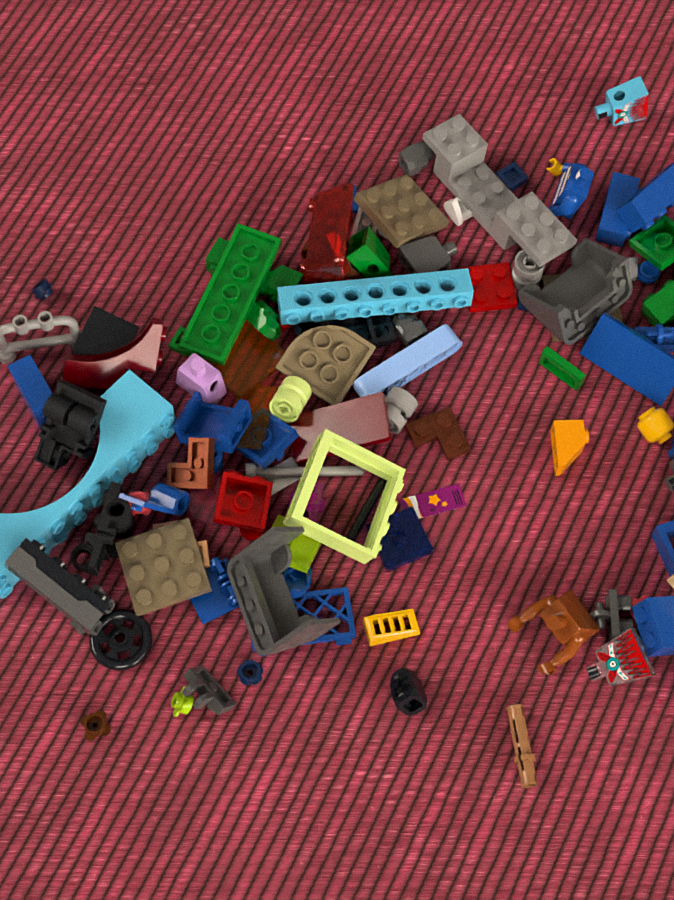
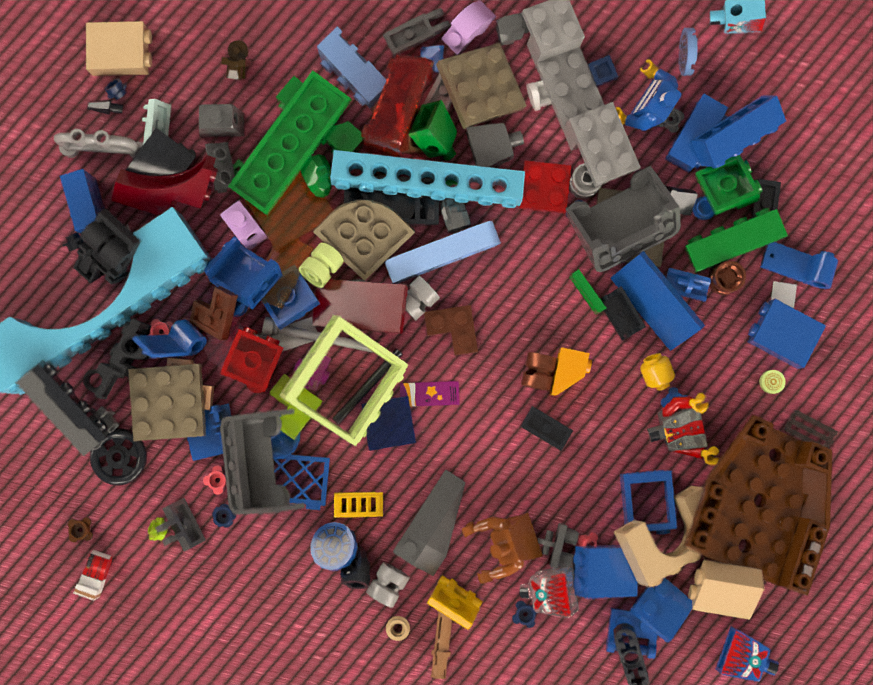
camera: 15 degrees right, 20 degrees up
(29, 436) = (73, 241): none -> black plate
(34, 308) = (105, 106): none -> black bar
(37, 253) = (118, 48): none -> tan brick
(87, 299) = (157, 117): none -> light aqua plate
(122, 769) = (94, 575): none -> leg
(153, 293) = (218, 121): none -> dark grey torso
(159, 236) = (237, 61): none -> dark brown hips
(170, 346) = (224, 164): none -> dark grey hinge
(231, 630) = (210, 480): none -> coral plate
(267, 216) = (351, 68): none -> medium blue wedge
(324, 179) = (414, 32): none -> dark grey hinge
(373, 162) = (467, 25): none -> lavender brick
(377, 673) = (334, 546): none -> tile
(446, 700) = (381, 590): none -> light grey wheel
(470, 737) = (397, 636): none -> tan plate
(474, 637) = (430, 532): none -> dark grey wedge
(532, 699) = (455, 602): none -> yellow plate
(538, 450) = (539, 371): none -> copper wheel
(563, 505) = (546, 428): none -> black plate
(585, 141) = (687, 51): none -> medium blue tile
(594, 201) = (677, 117): none -> dark grey plate
(603, 380) = (622, 313): none -> black hinge
(604, 690) = (527, 620): none -> dark blue plate

